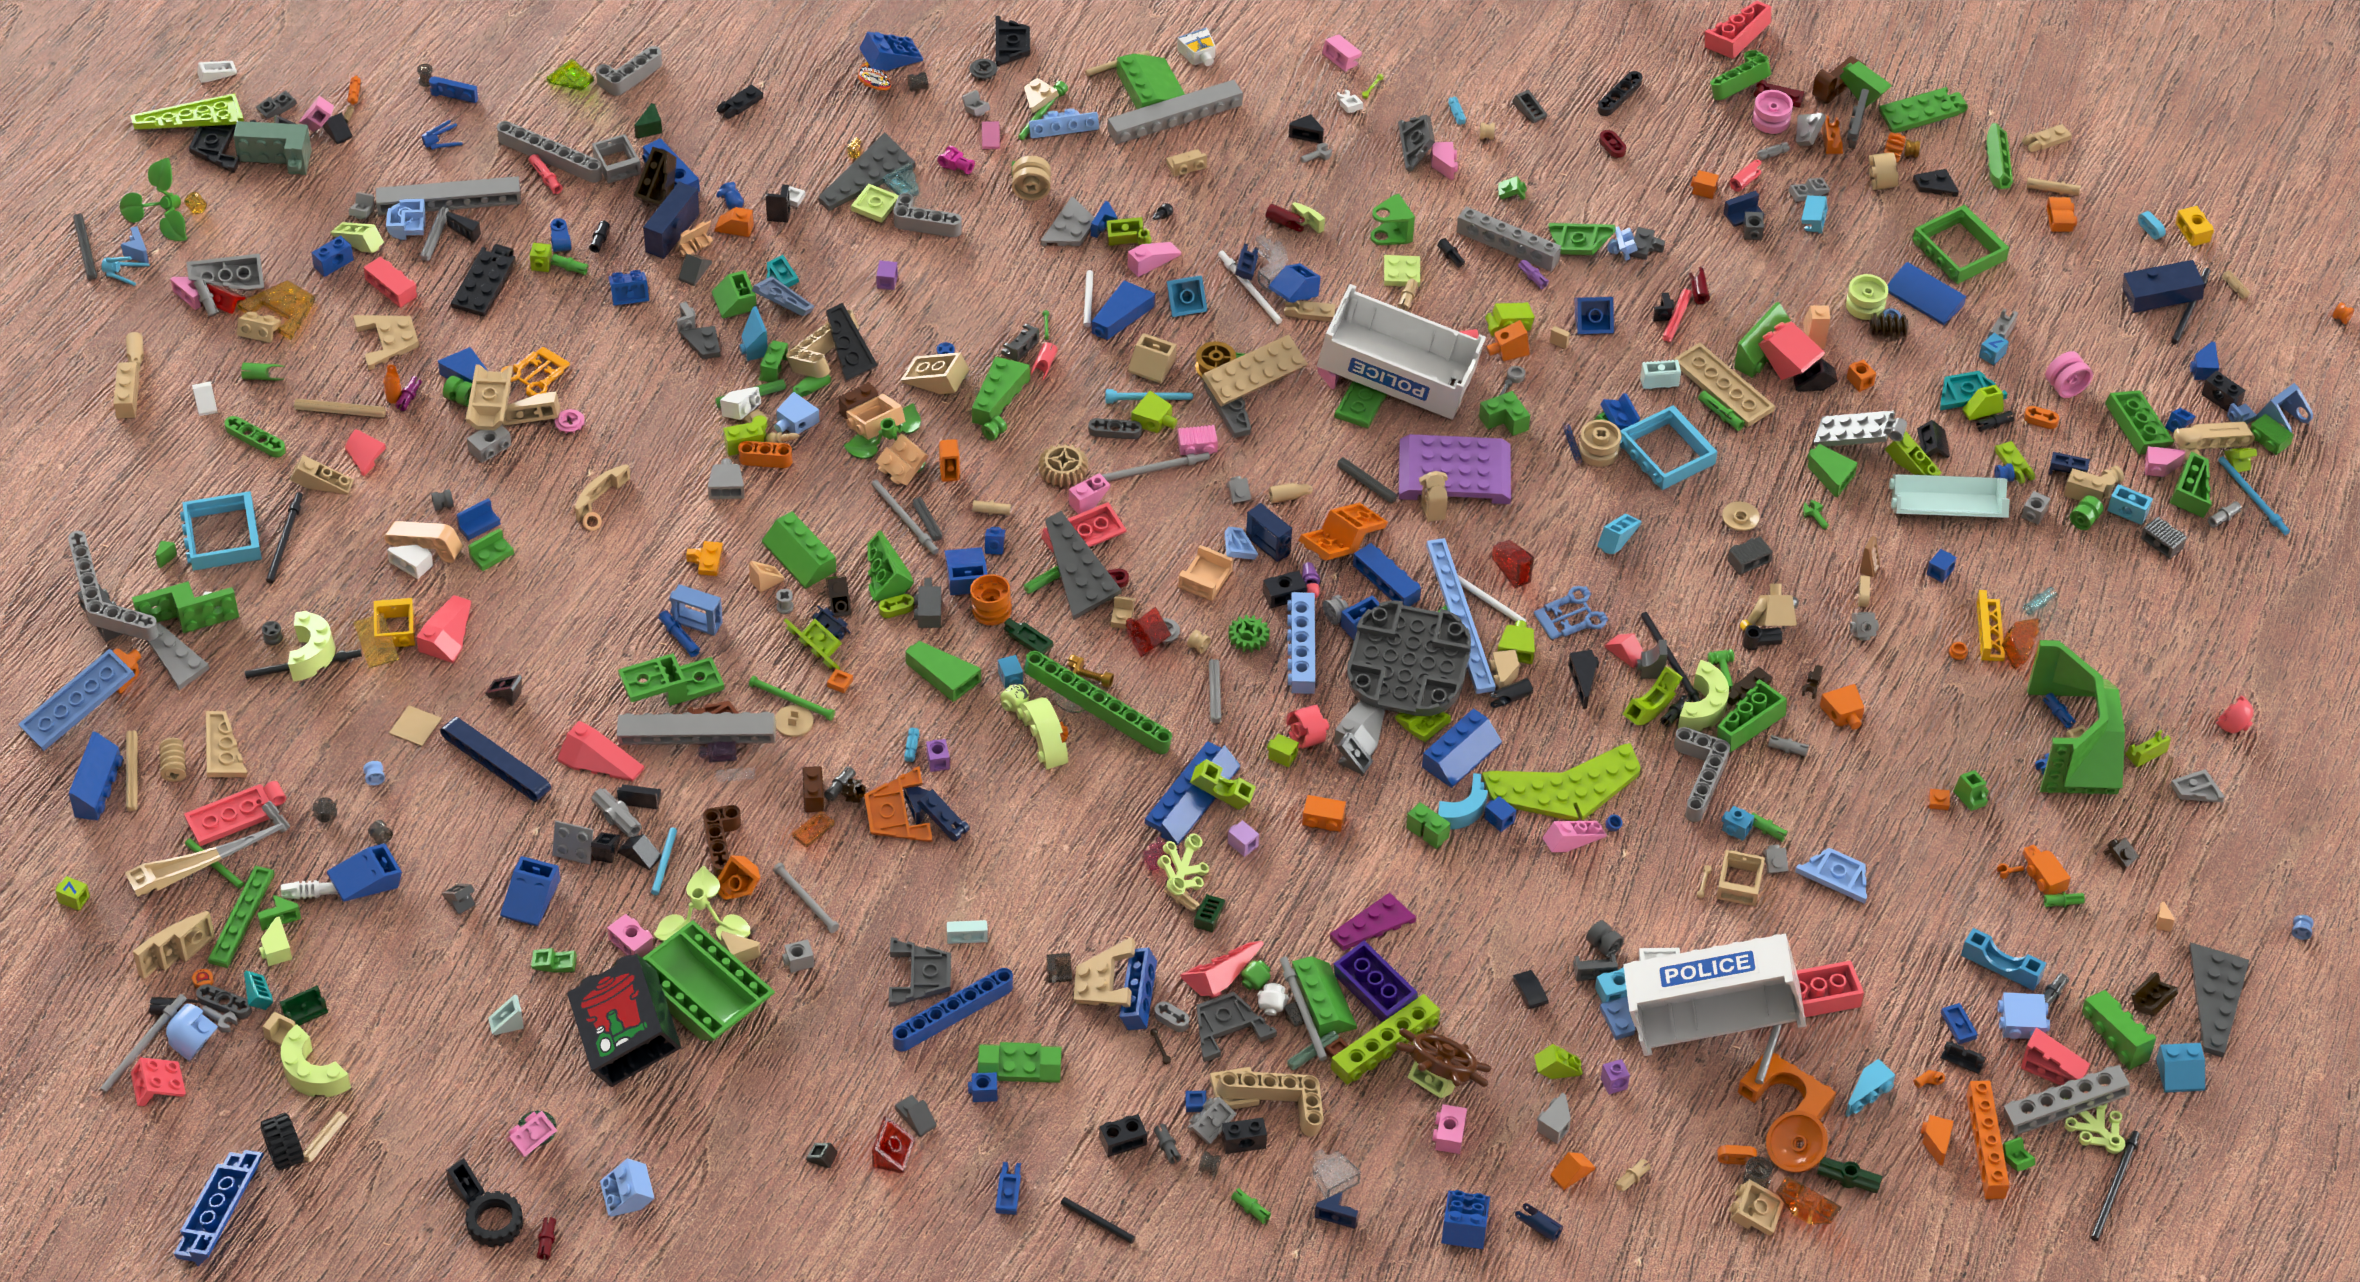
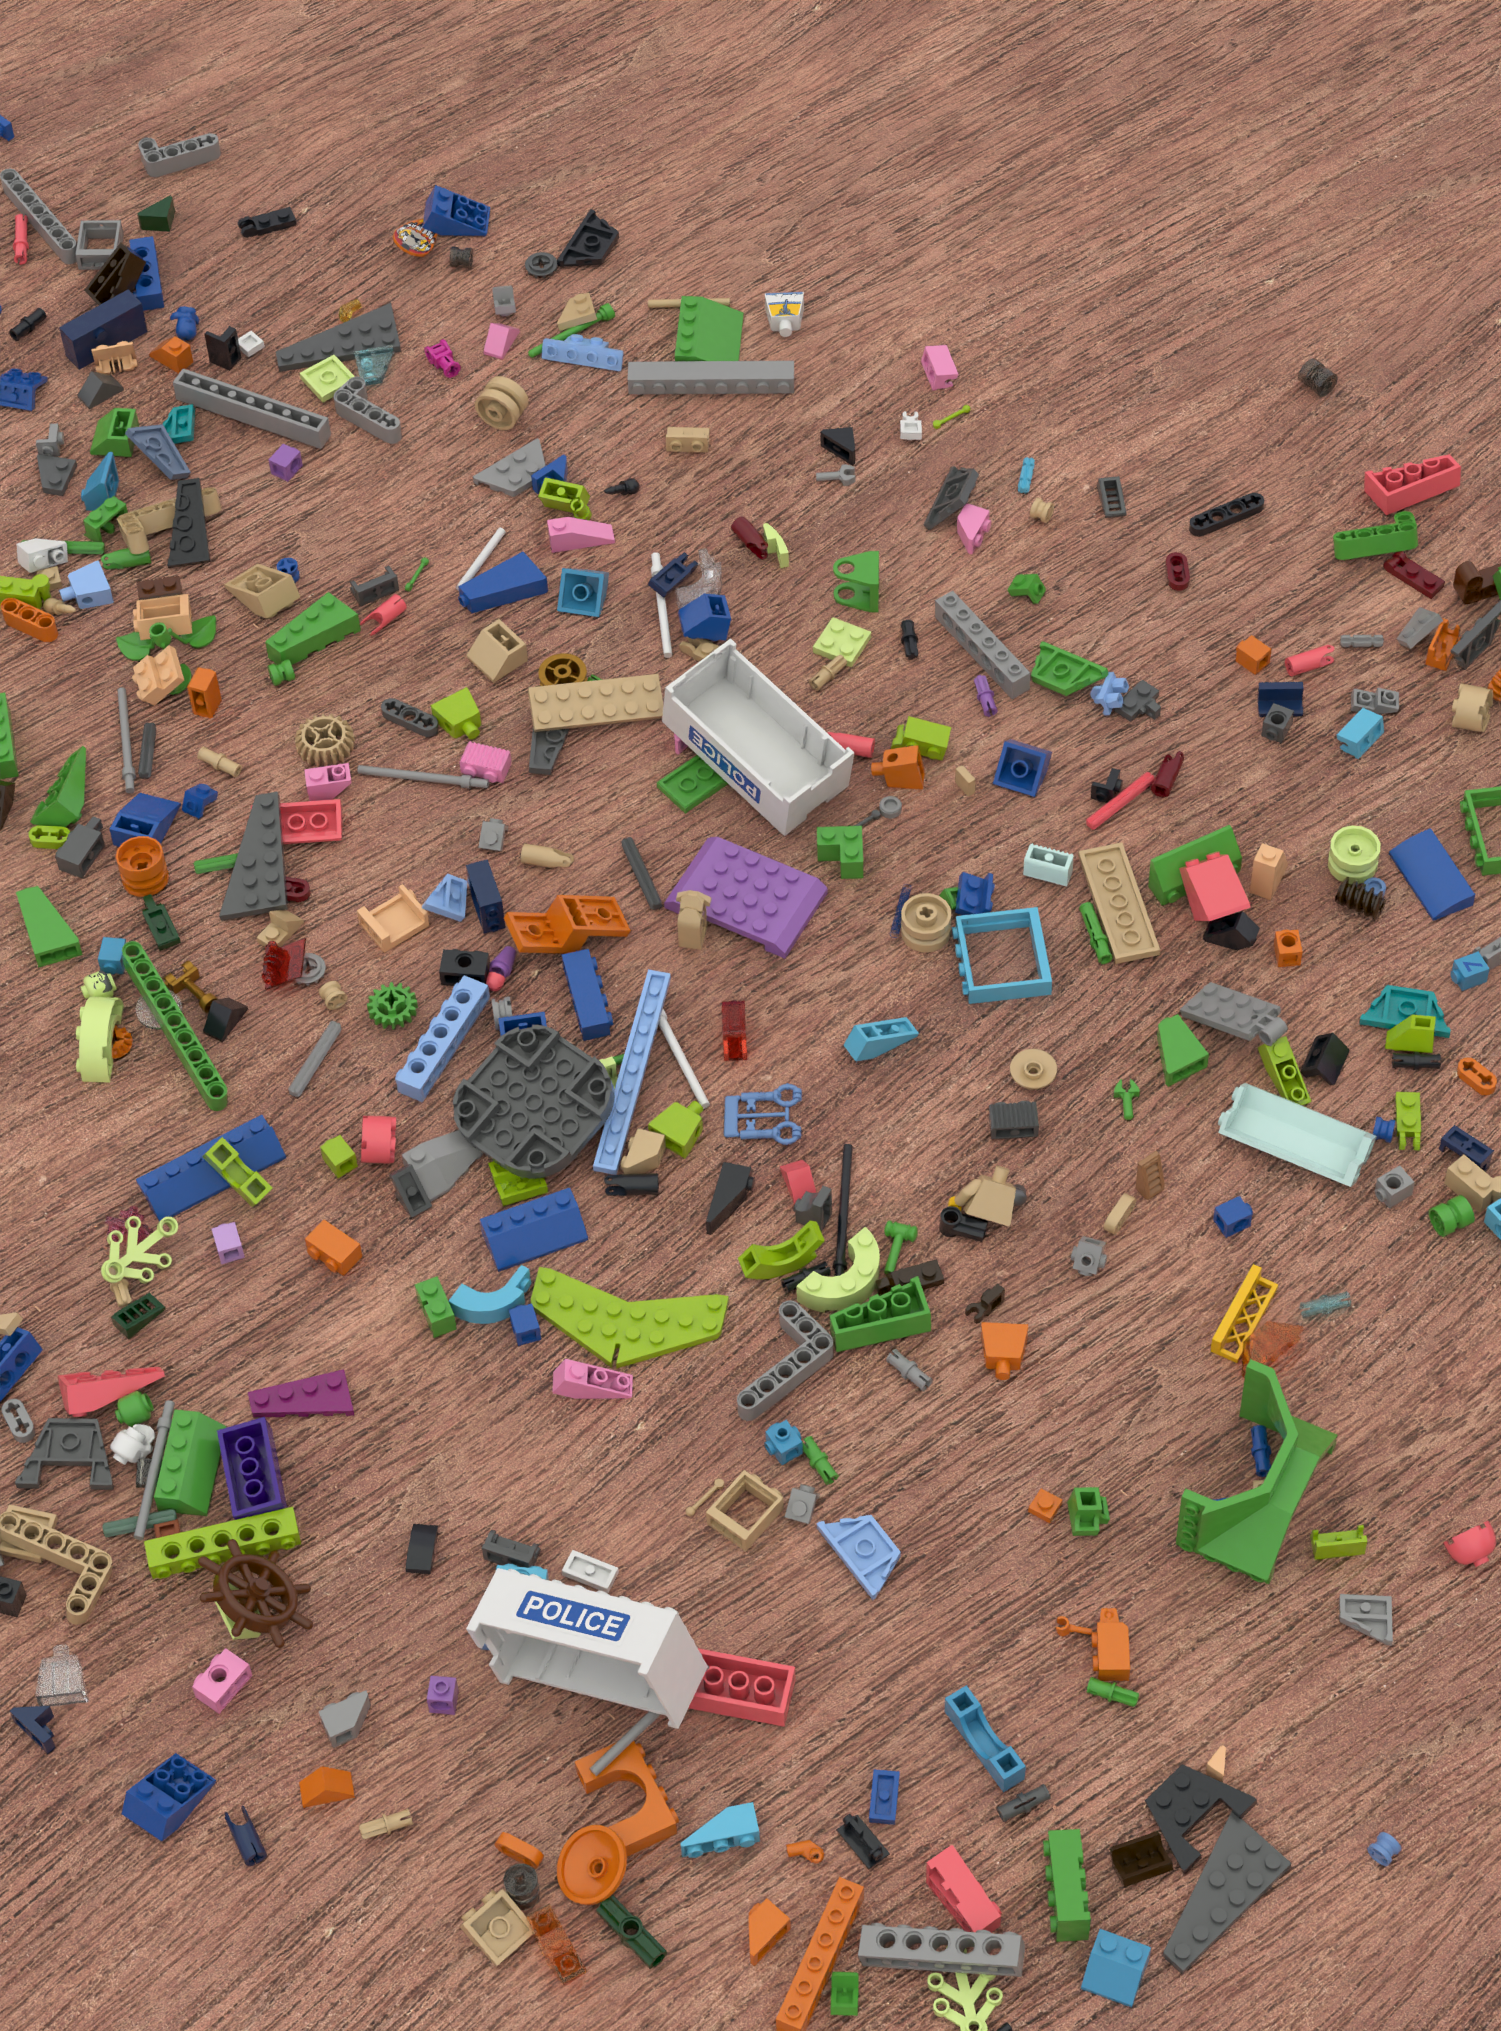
camera: 30 degrees right, 5 degrees up
(571, 76) = (116, 141): clear neon green wing -> none
(833, 242) = (252, 408): none -> light grey brick
(1112, 396) = (429, 679): medium azure piece -> none
(1126, 687) = (223, 1017): none -> black slope
(1557, 1063) = (391, 1652): lime slope -> none
(1604, 938) = (541, 1520): dark grey wheel -> none
(1613, 823) = (649, 1383): blue hinge -> none
(1772, 111) = (1386, 593): bright pink wheel -> none
(1958, 651) = (1186, 1330): orange plate -> none
(2022, 1015) = (963, 1820): light blue brick -> none
(2122, 852) = (1221, 1660): dark brown bracket -> none
(2157, 947) = (1184, 1802): none -> black wing

